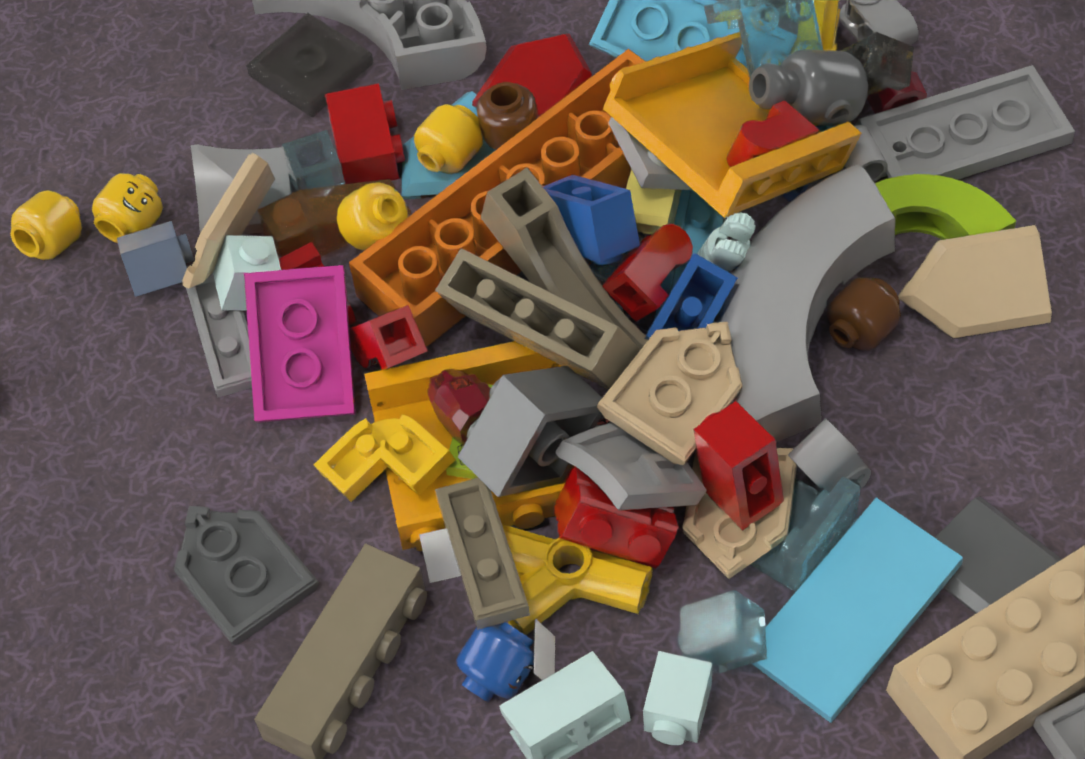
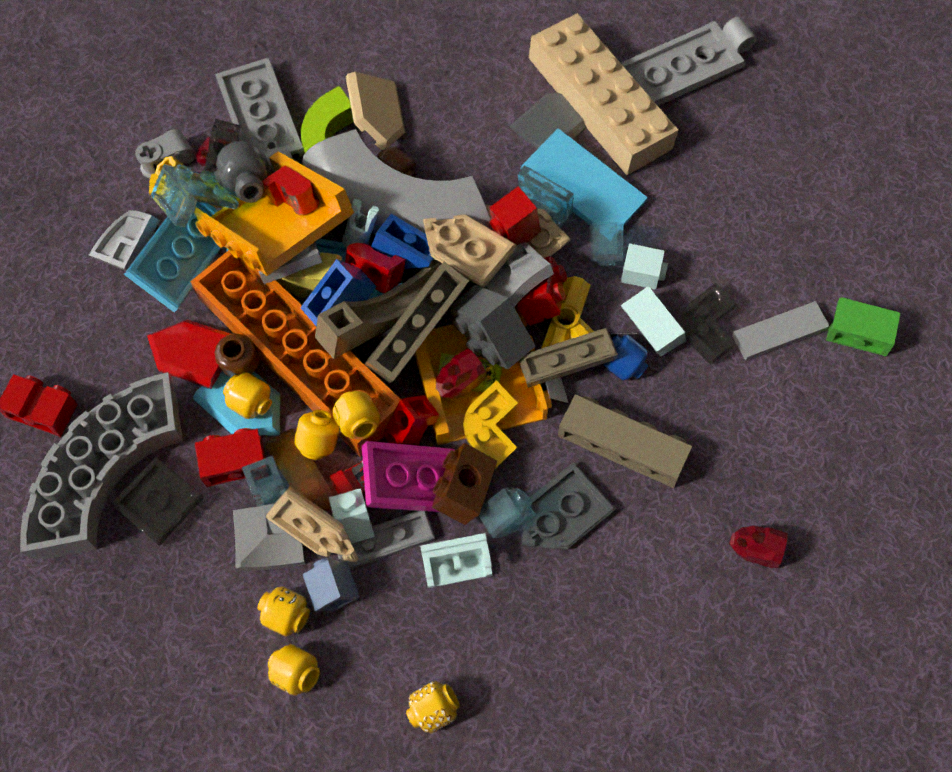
camera: 95 degrees left, 10 degrees up
(174, 416) = (456, 560): none -> light aqua hinge
(233, 473) = (506, 512): none -> clear light blue brick
(252, 411) = (475, 471): none -> reddish brown brick
(382, 246) = (356, 415): none -> yellow head
(828, 456) = (497, 184): light grey piece -> none

